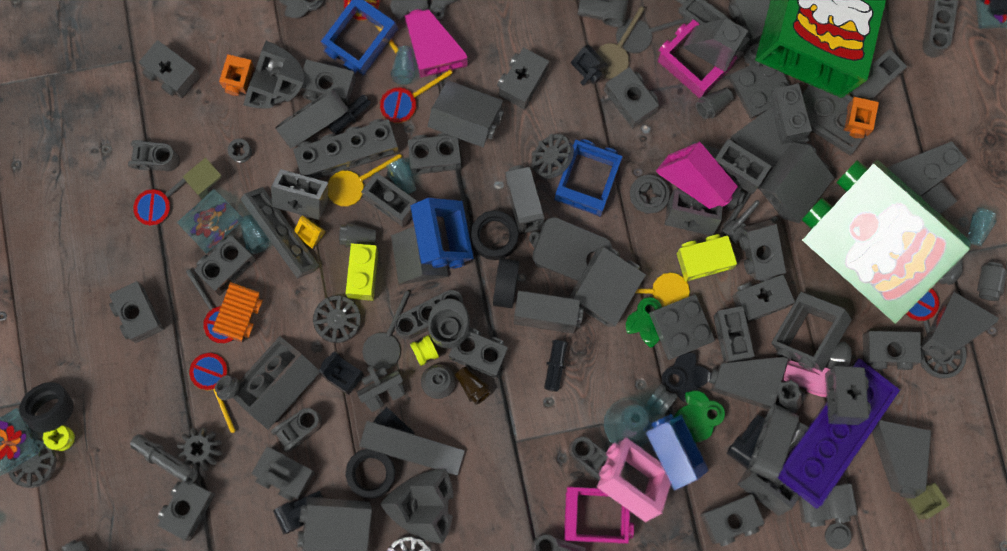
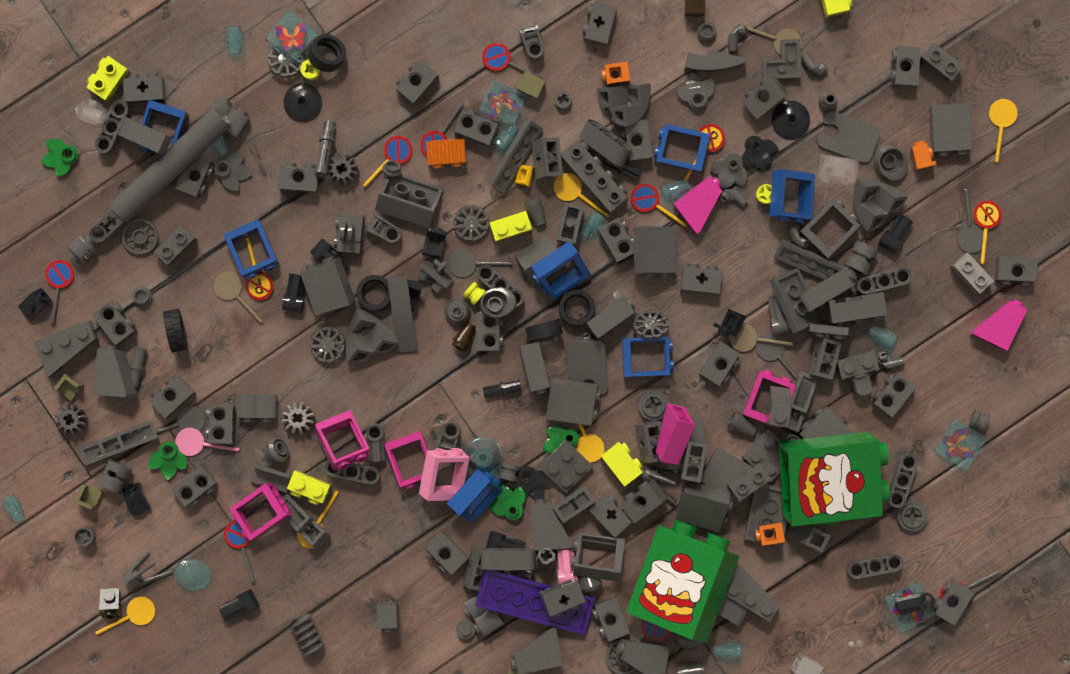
camera: 70 degrees right, 10 degrees up
(107, 467) = (309, 109): none -> black dish

